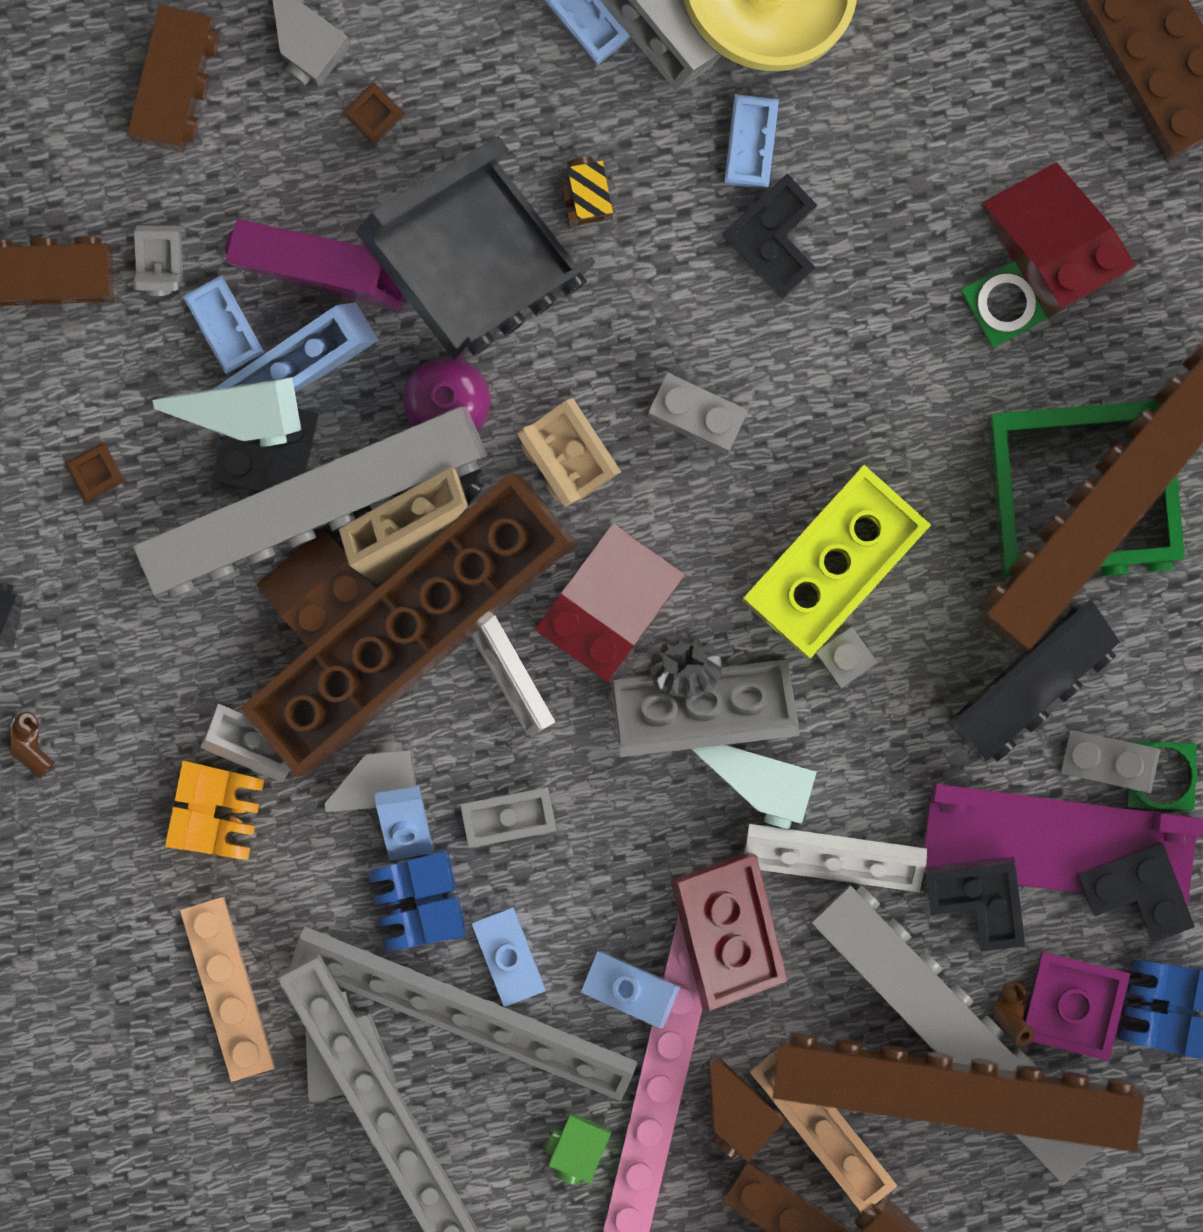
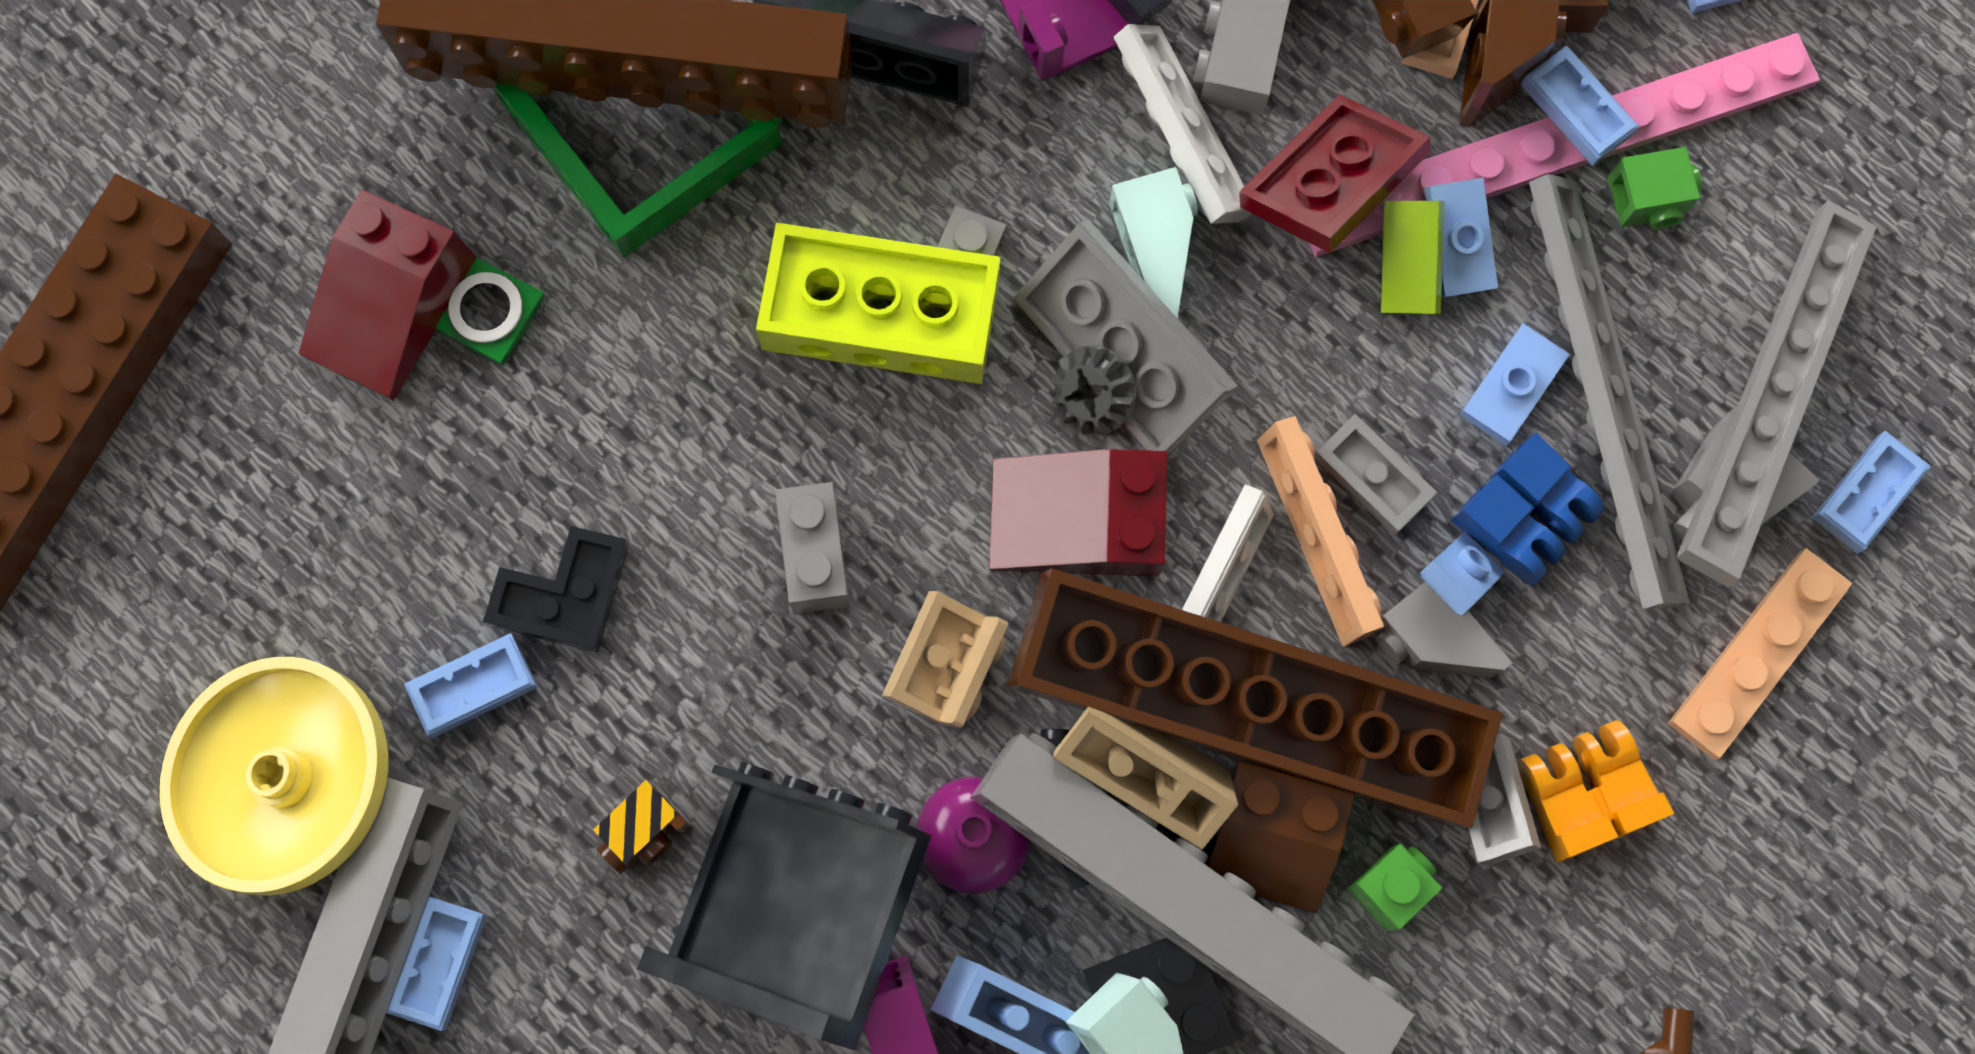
camera: 130 degrees left, 10 degrees down
(238, 641) = (1396, 886): none -> bright green brick
(281, 1141) = (1871, 492): none -> light blue plate
(511, 758) = (1314, 518): none -> light nougat plate
(637, 944) = (1412, 257): none -> lime tile
(666, 1132) = (1579, 105): none -> light blue plate

